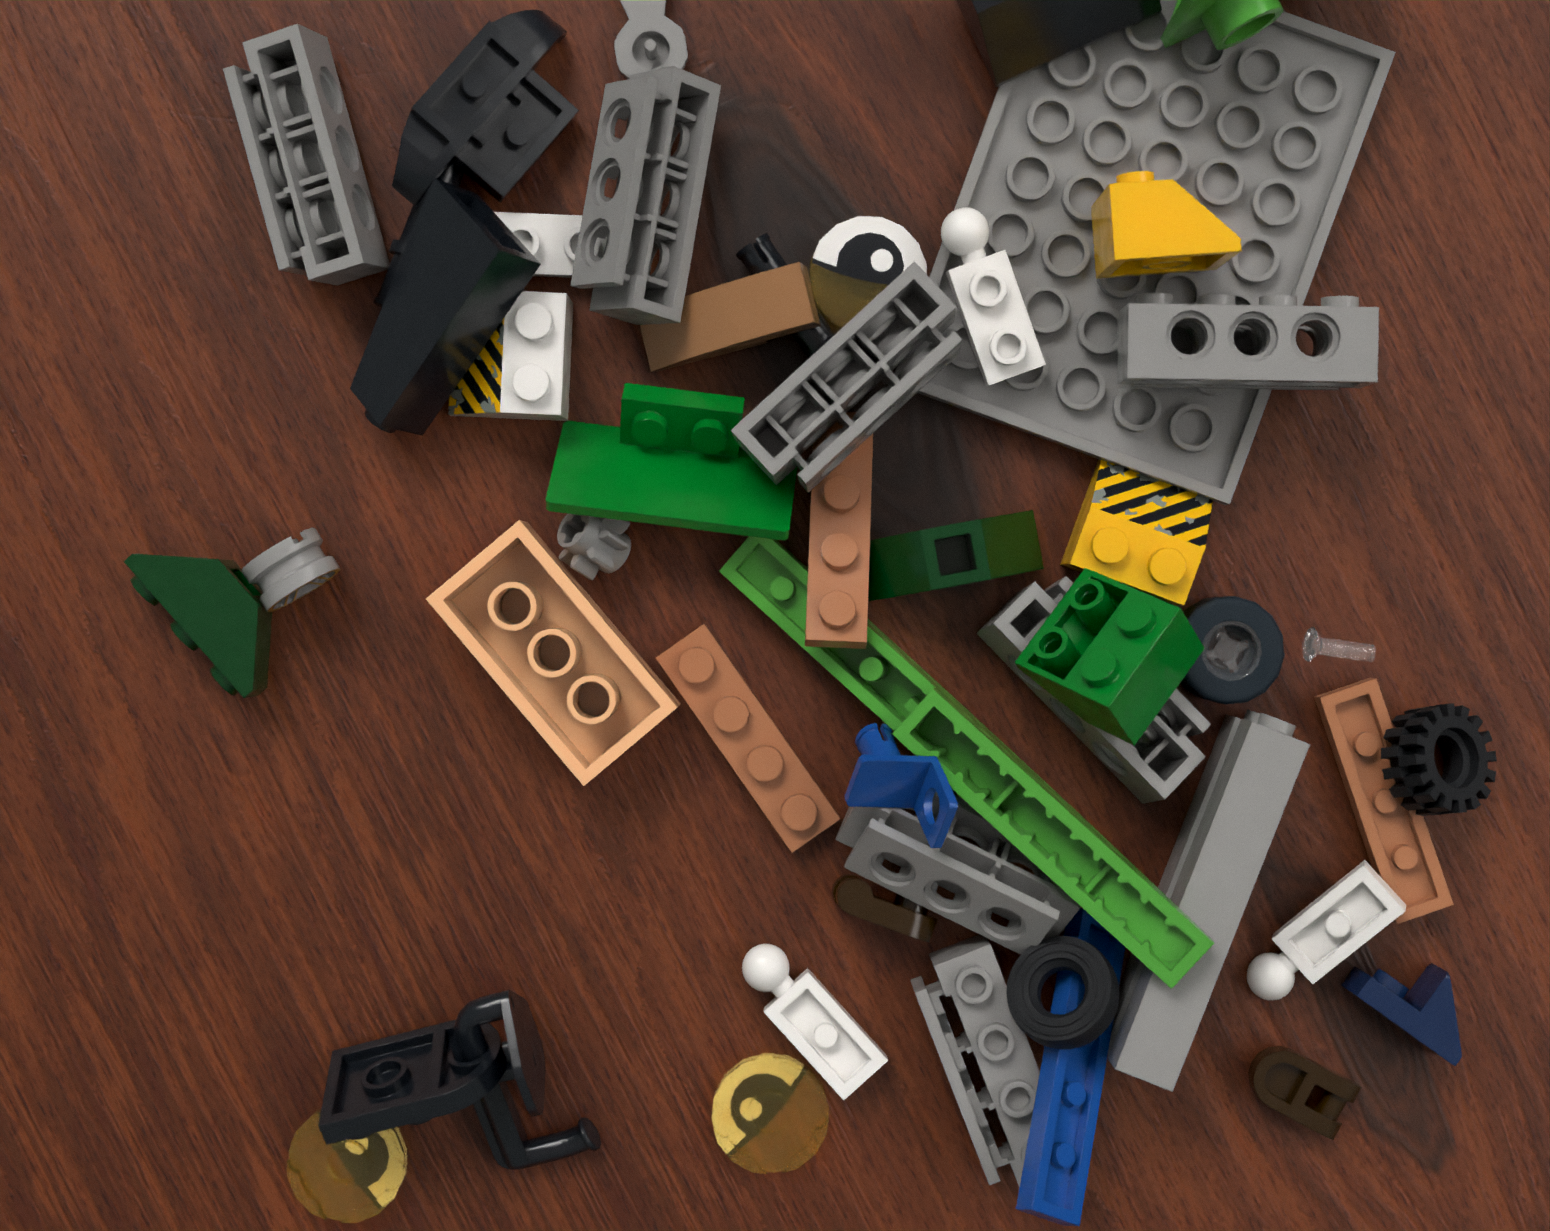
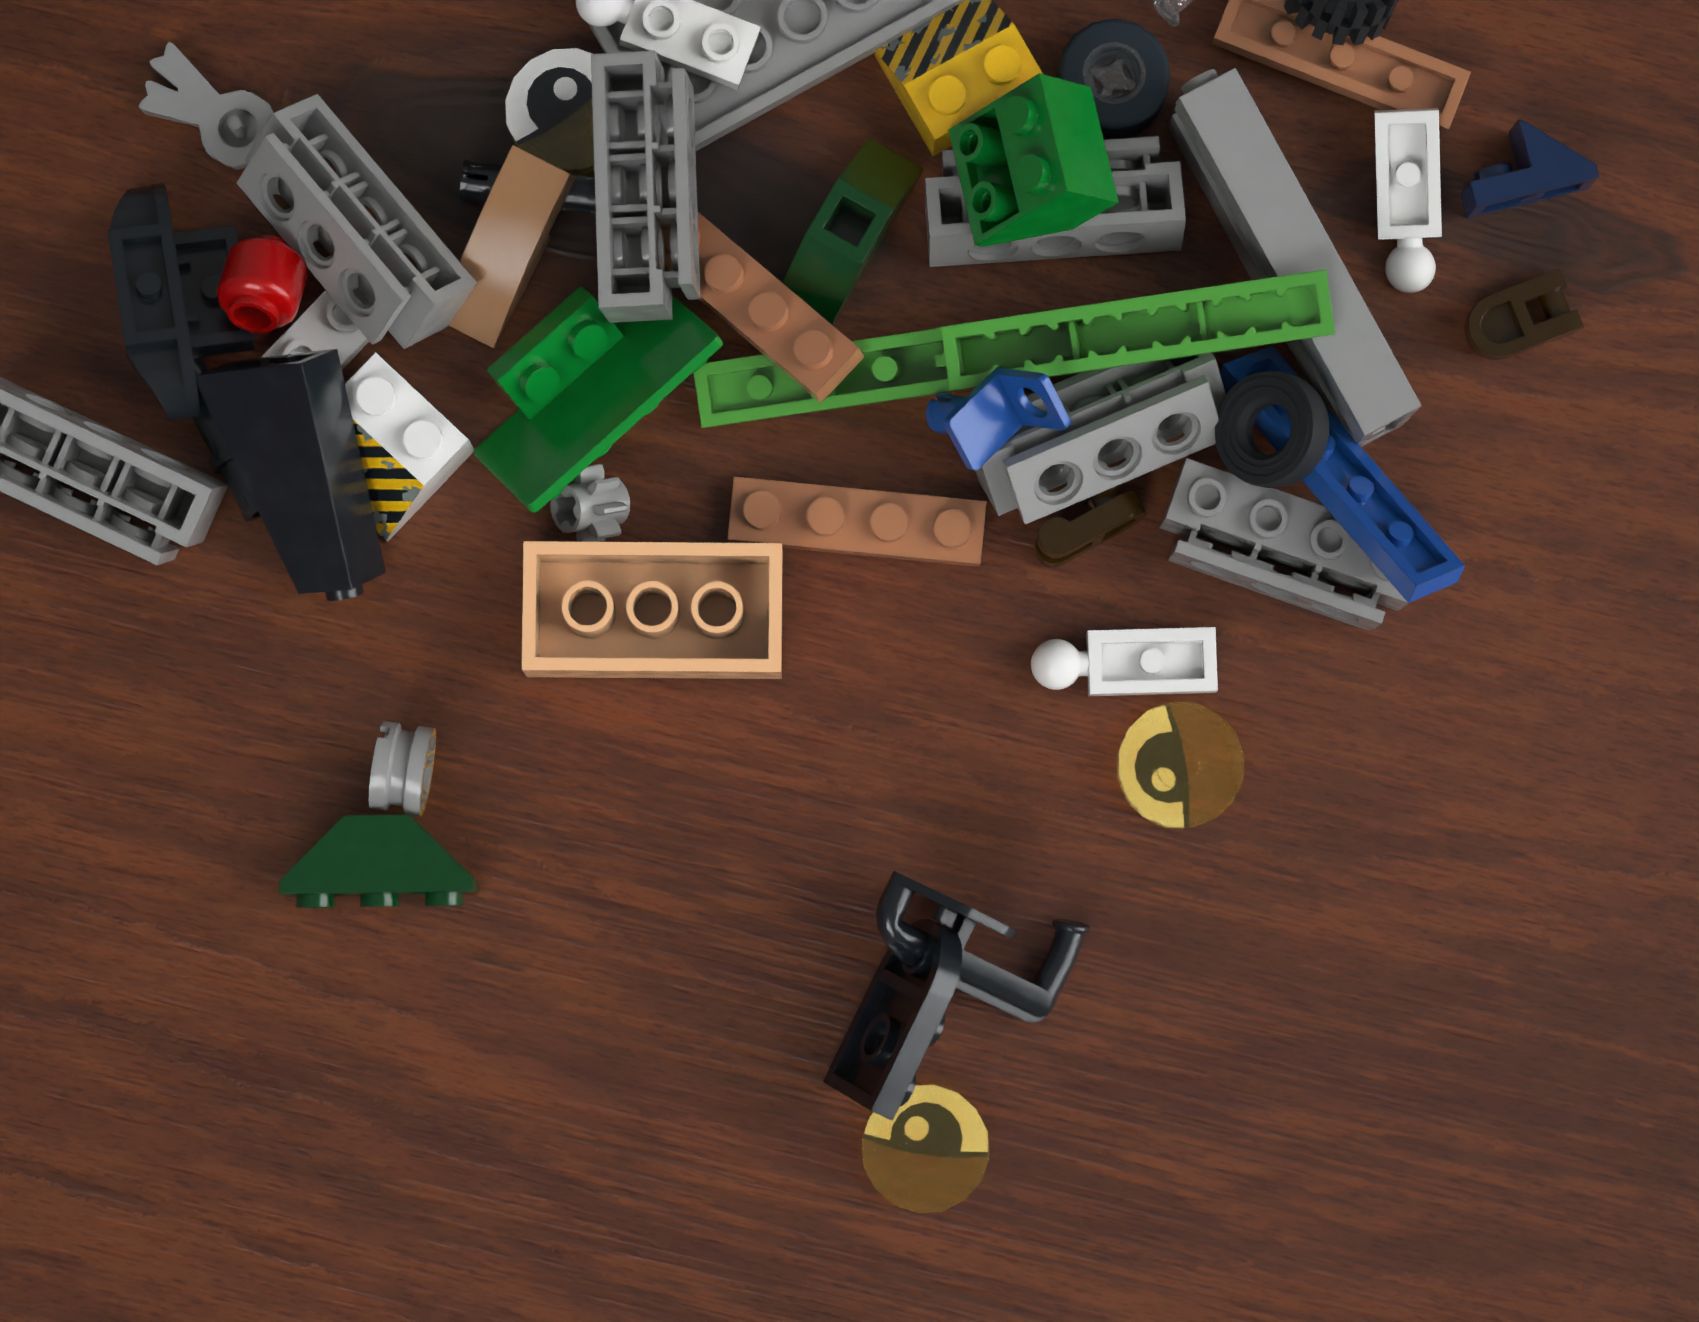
camera: 55 degrees left, 5 degrees down
(546, 167) = (262, 283): none -> red head

